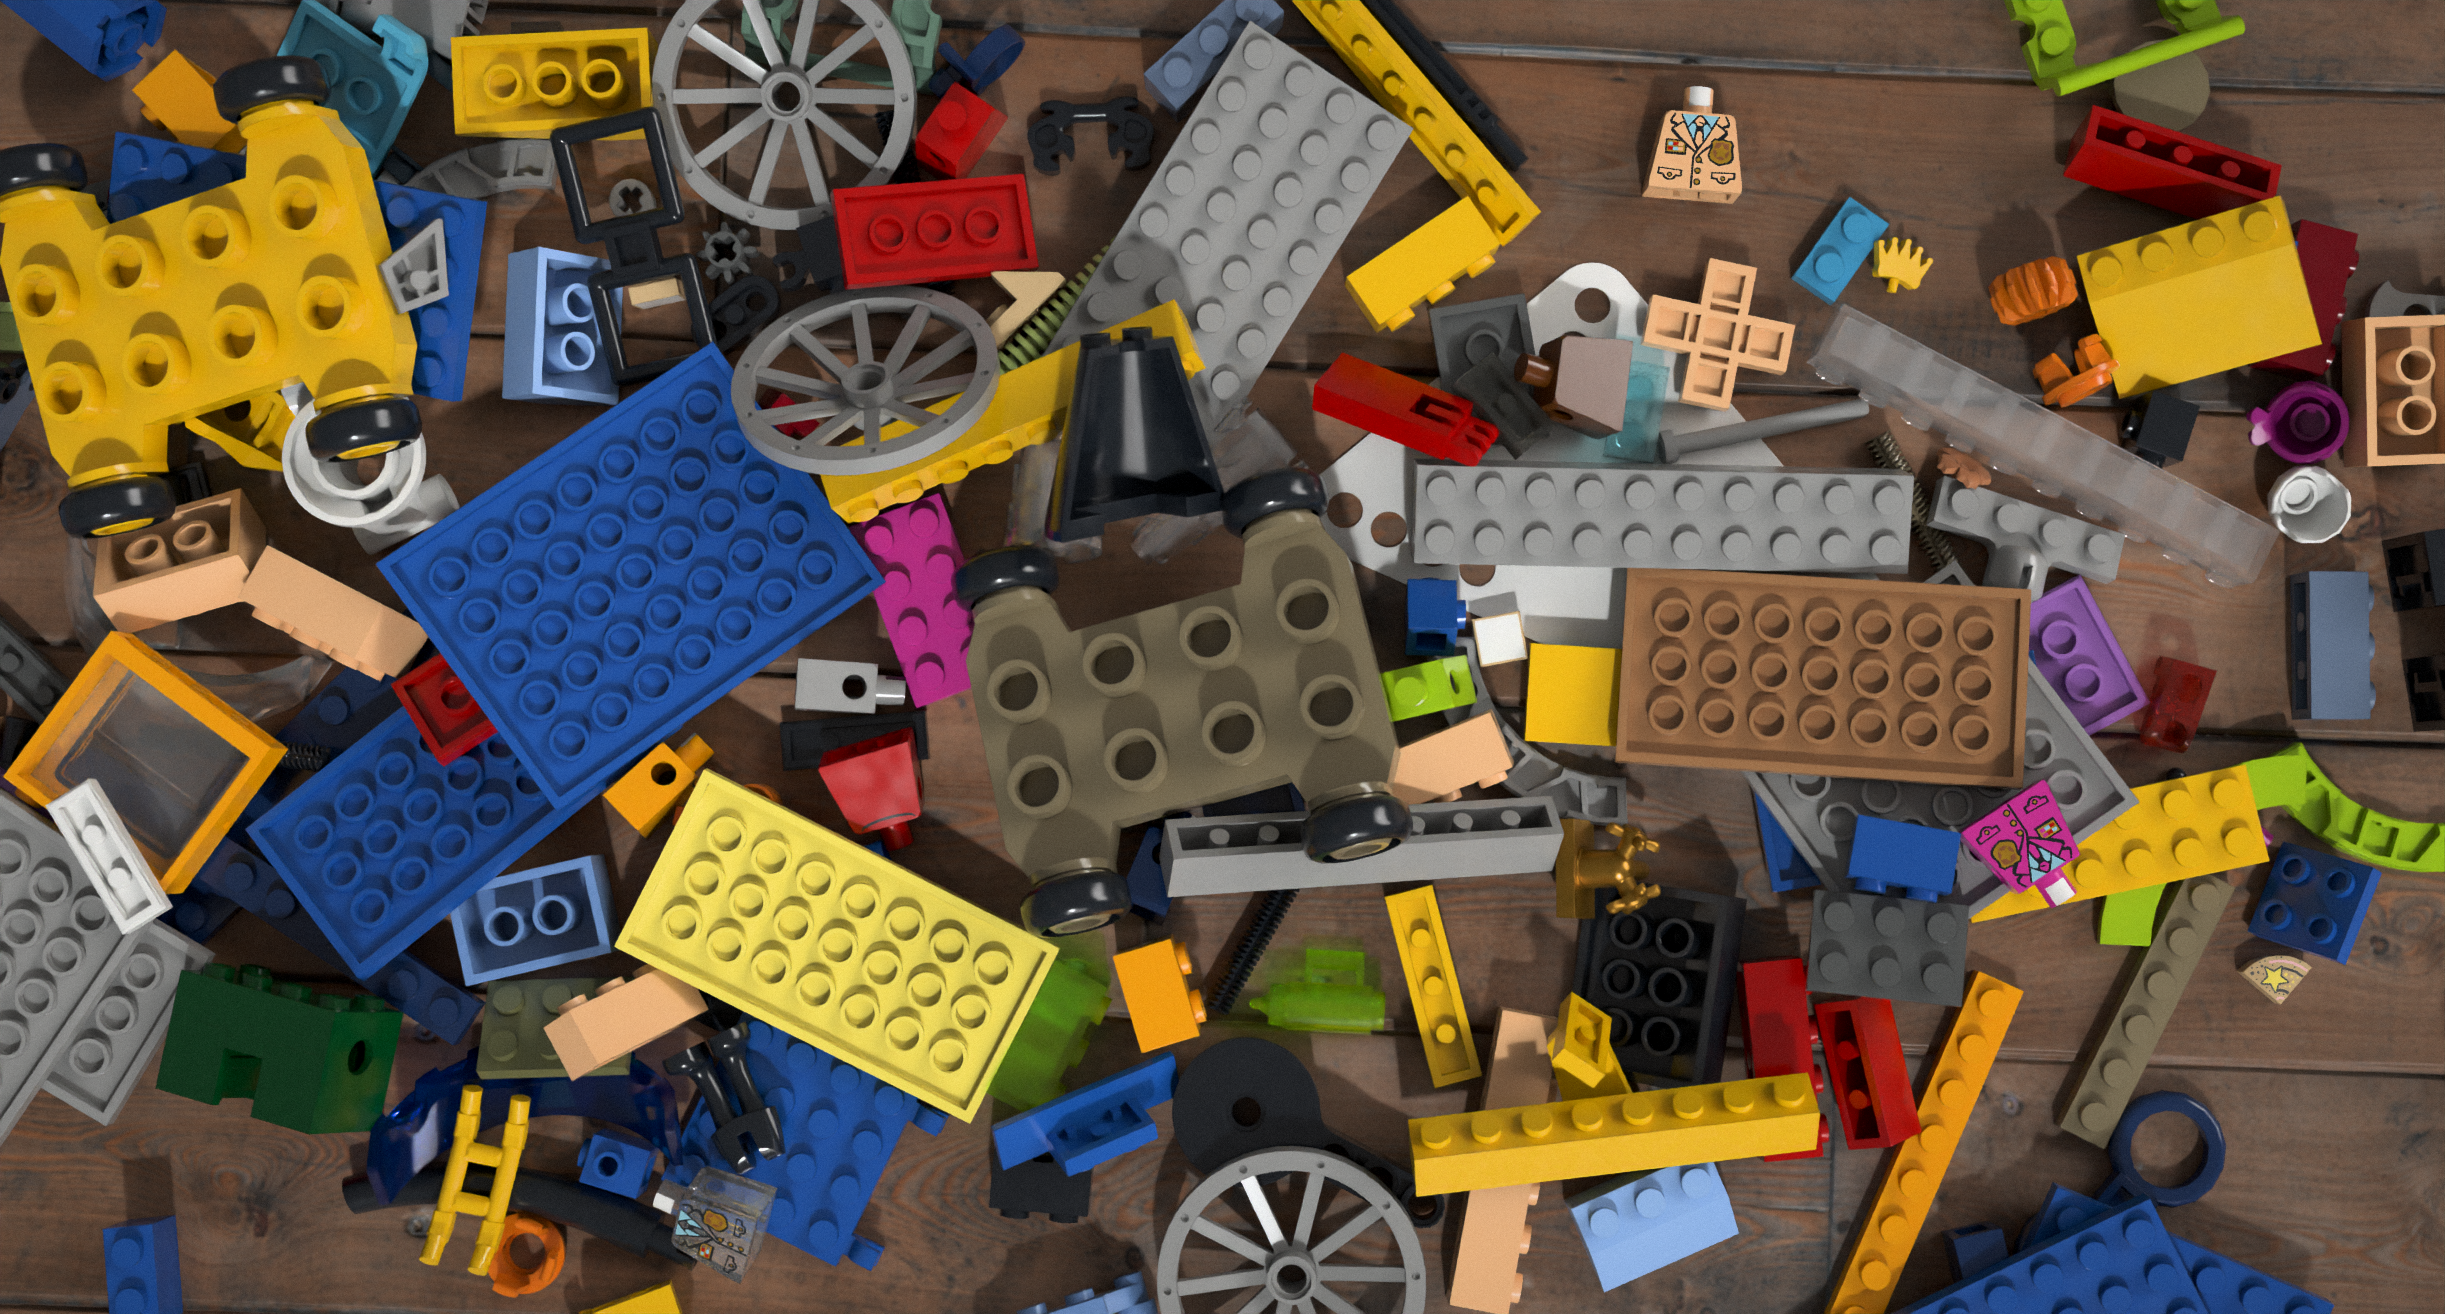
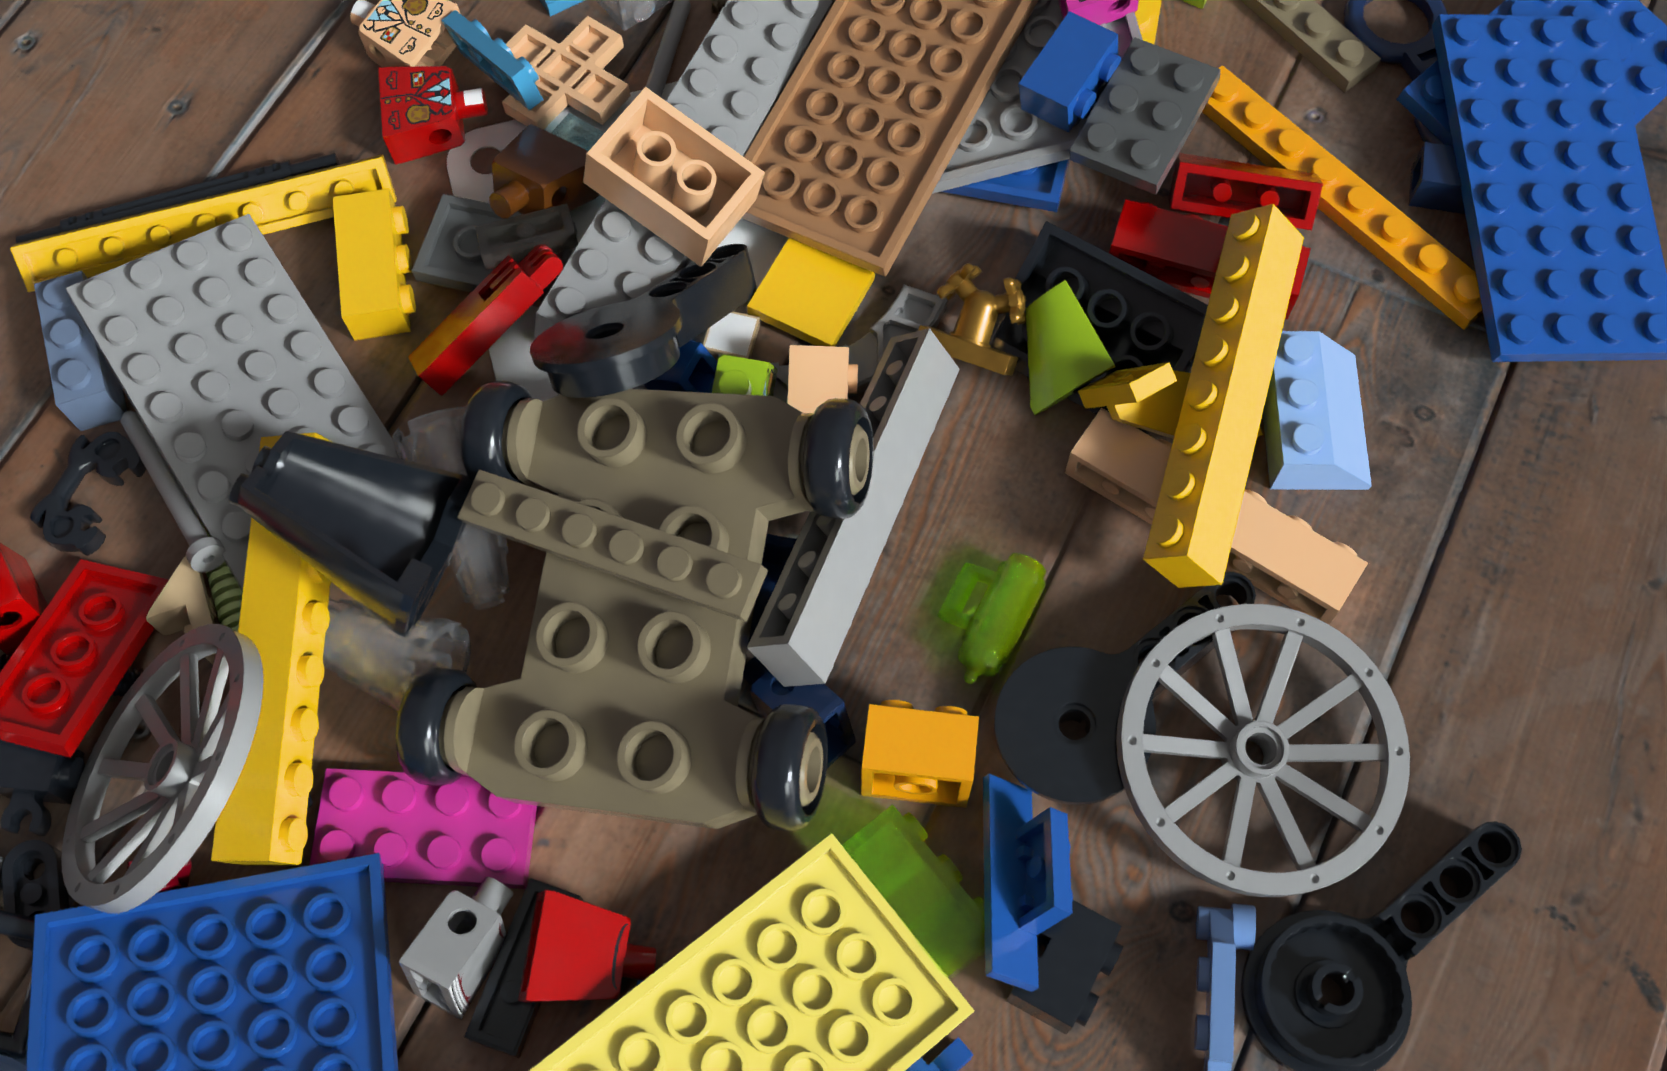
camera: 70 degrees left, 20 degrees down
(1068, 290) = (203, 551): none -> light grey bar
(1198, 666) = (614, 545): none -> dark tan plate
(1251, 949) = (905, 652): black axle -> none
(1408, 571) = (641, 337): none -> black beam
(1432, 986) = (1022, 513): yellow plate -> none
(1603, 531) = (672, 176): none -> light nougat brick
(1610, 960) = (1061, 348): none -> lime slope
(1612, 222) = (424, 110): none -> red torso
(1694, 265) = (494, 59): none -> dark azure plate

